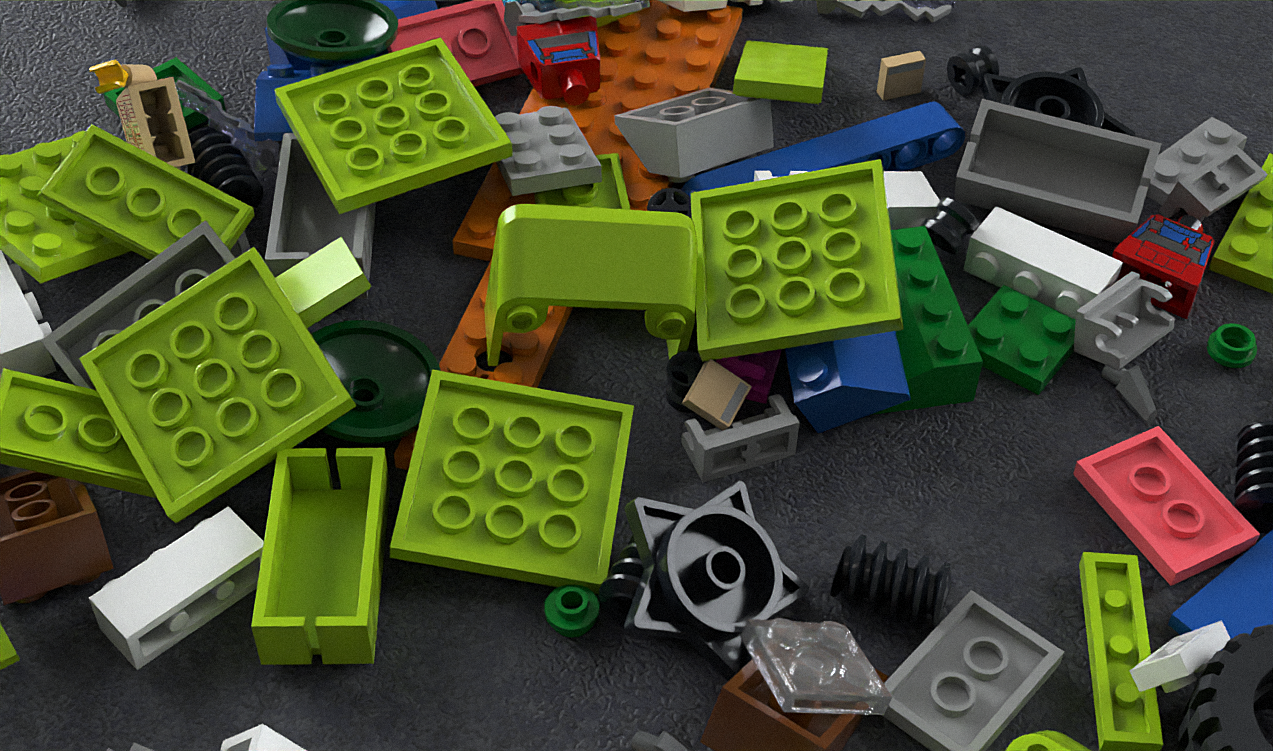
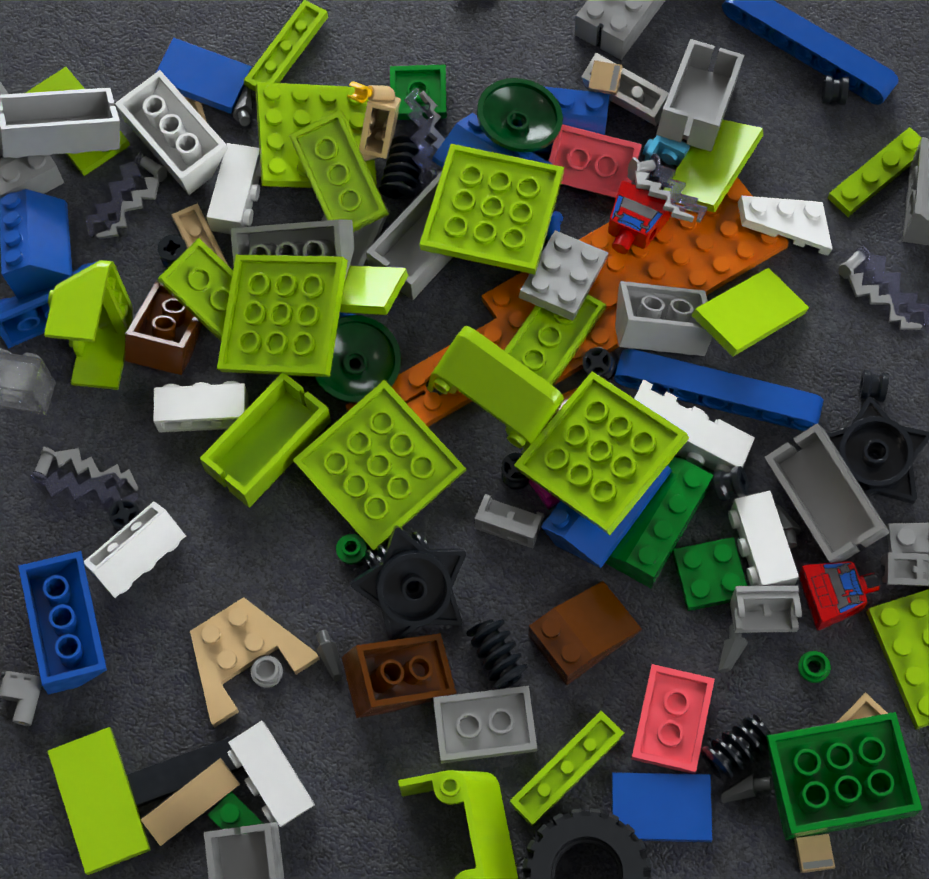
camera: 45 degrees right, 20 degrees up
(716, 394) = (513, 491): tan tile -> none
(815, 667) = (414, 665): clear plate -> none
(901, 75) = (827, 359): tan tile -> none
(960, 498) = (583, 631): none -> reddish brown slope
(1180, 658) = (580, 795): white plate -> none

